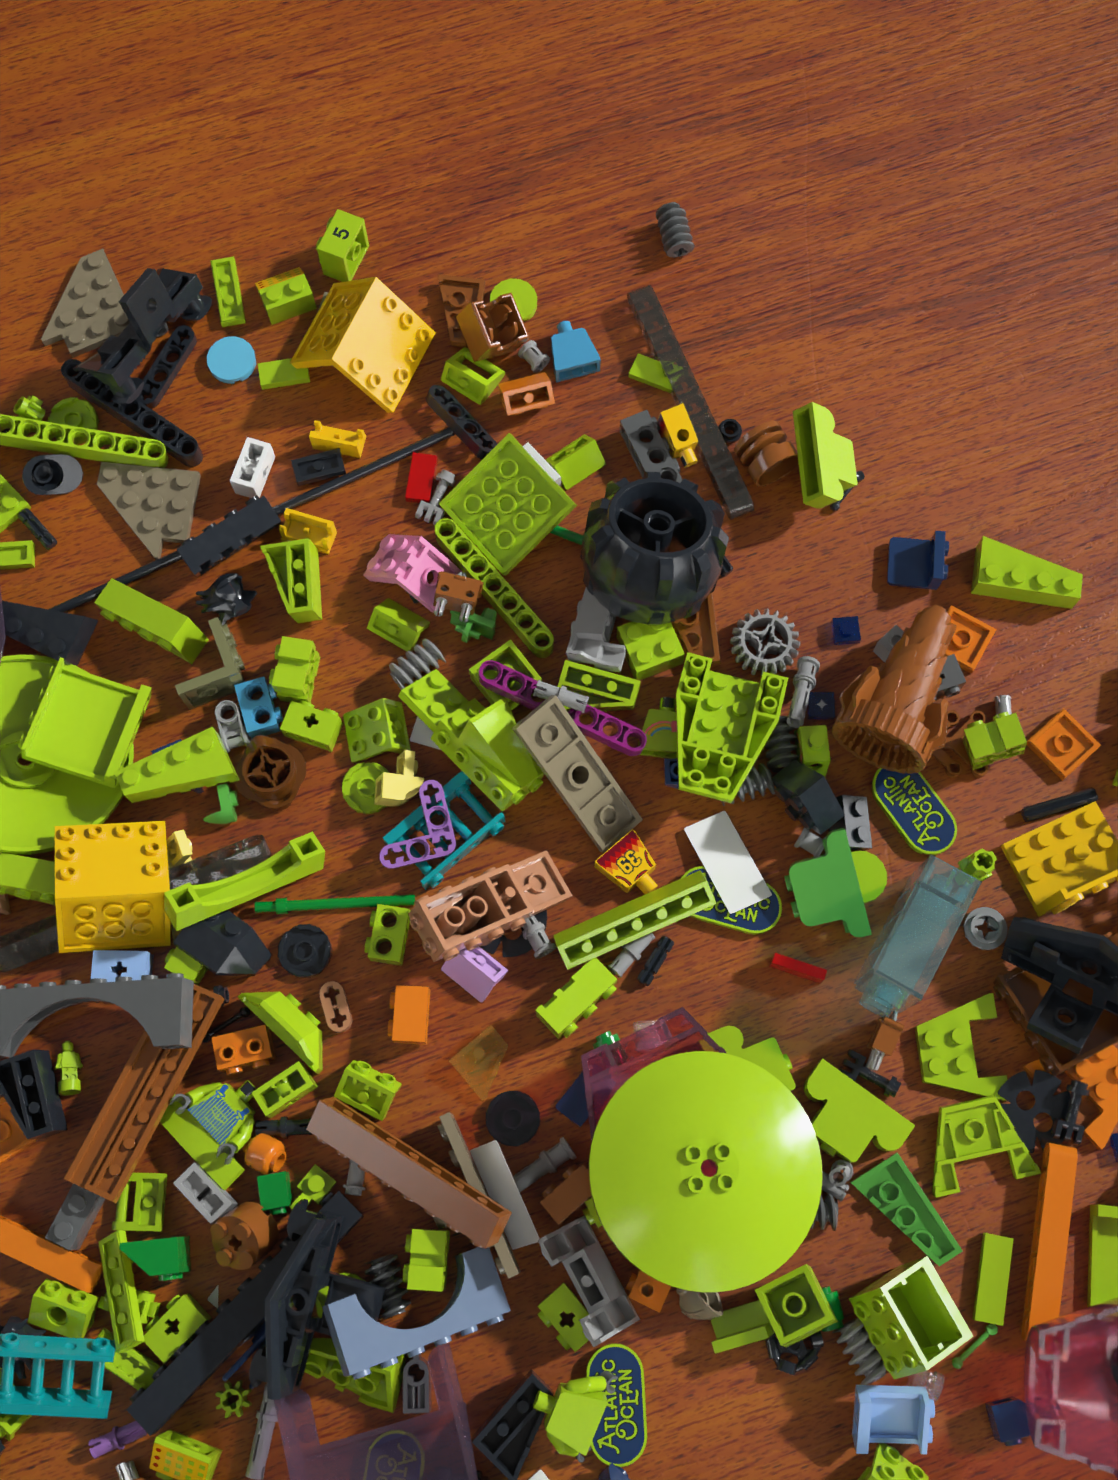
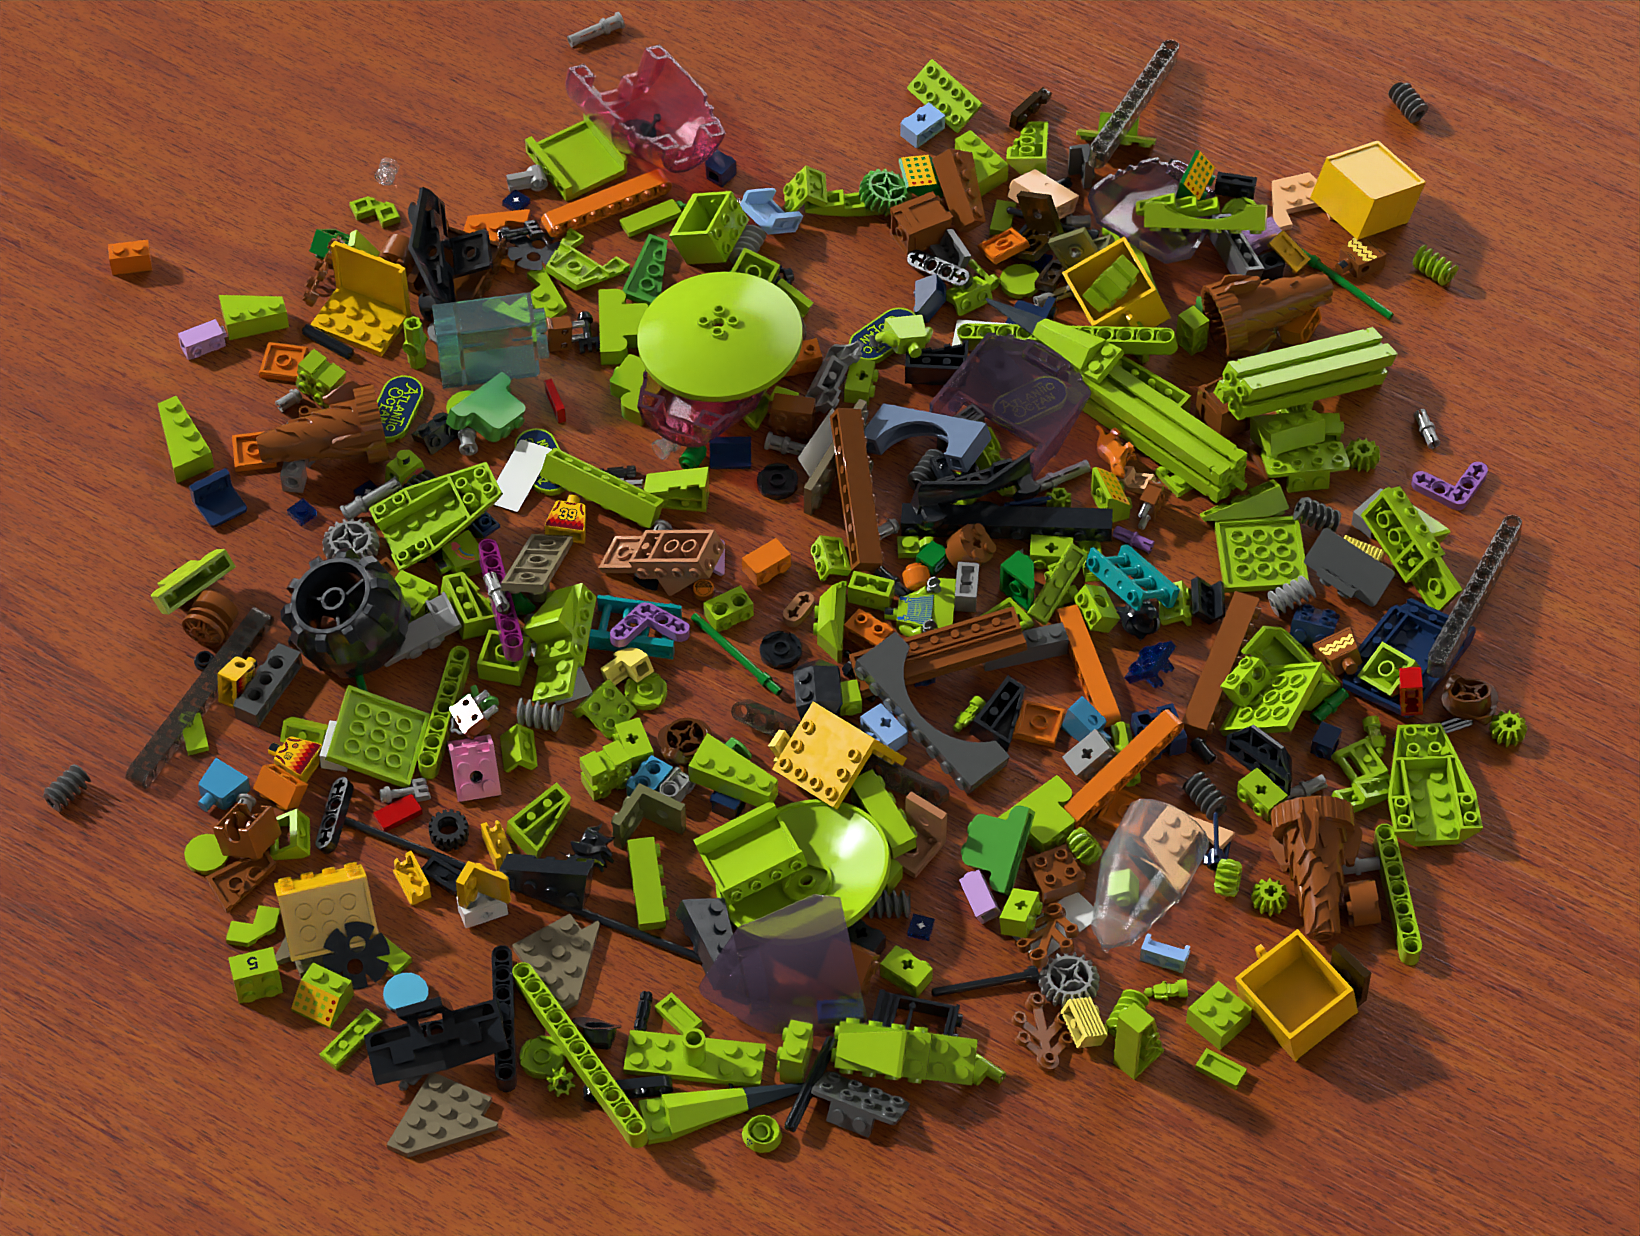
camera: 130 degrees left, 20 degrees down
(198, 902) = (736, 684): lime arch -> none
(246, 458) = (480, 879): none -> yellow bracket
(302, 325) = (368, 956): none -> black piece
(358, 490) = (452, 840): none -> black tyre
(405, 279) = (246, 934): none -> lime tile
(427, 1259) = (894, 456): lime brick -> none
(481, 1060) = (758, 515): clear yellow wing -> none
(549, 429) = (297, 757): none -> torso
(807, 797) = (443, 448): black brick -> none

